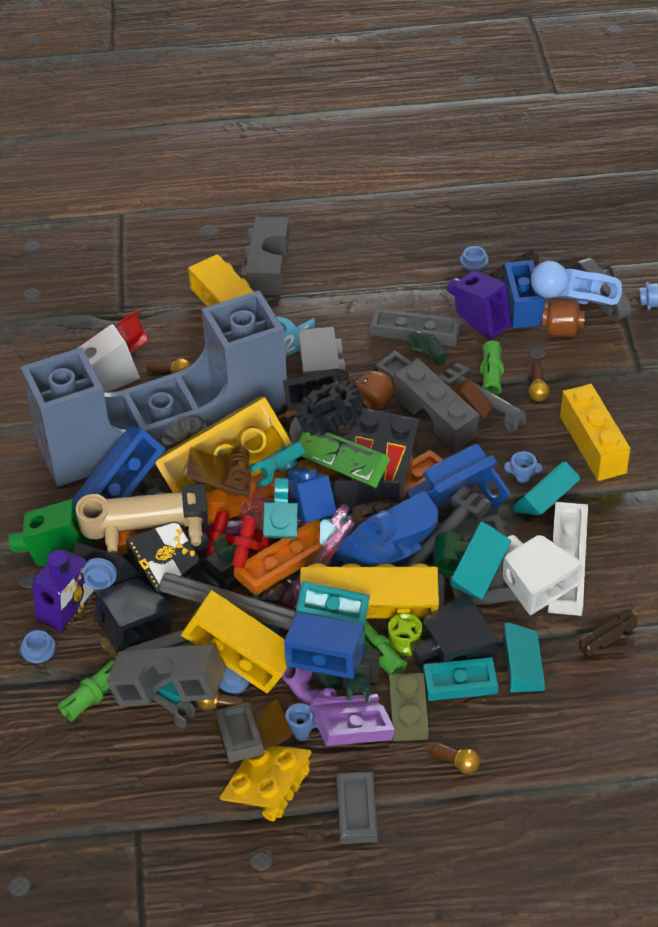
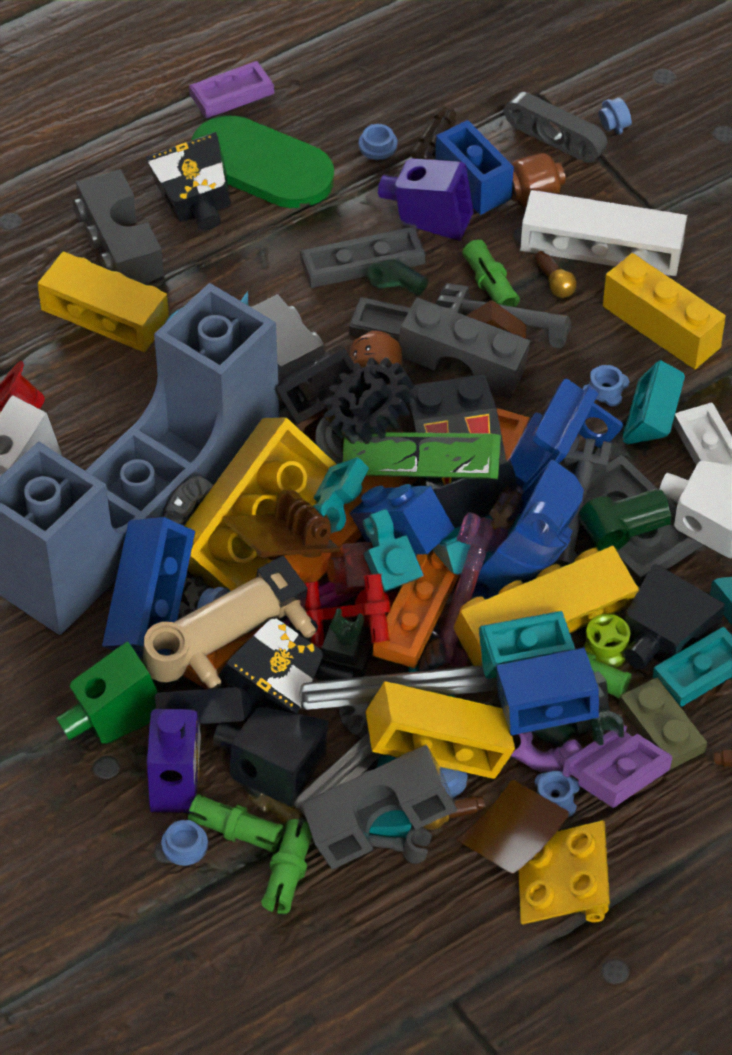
camera: 30 degrees left, 5 degrees up
(77, 647) = (236, 823): none -> bright green pin
(99, 573) = (220, 720): medium blue plate -> none
(168, 367) = (108, 421): piece -> none
(239, 732) = (501, 836): dark grey tile -> none
(334, 240) = (193, 180): none -> torso
(356, 808) = (682, 863): dark grey tile -> none
(391, 246) = (270, 162): none -> green tile
(400, 196) = (231, 89): none -> medium lavender plate
(480, 561) = (655, 519): teal slope -> none
(553, 280) = (518, 138): light blue piece -> none
(584, 363) = (602, 231): none -> white brick

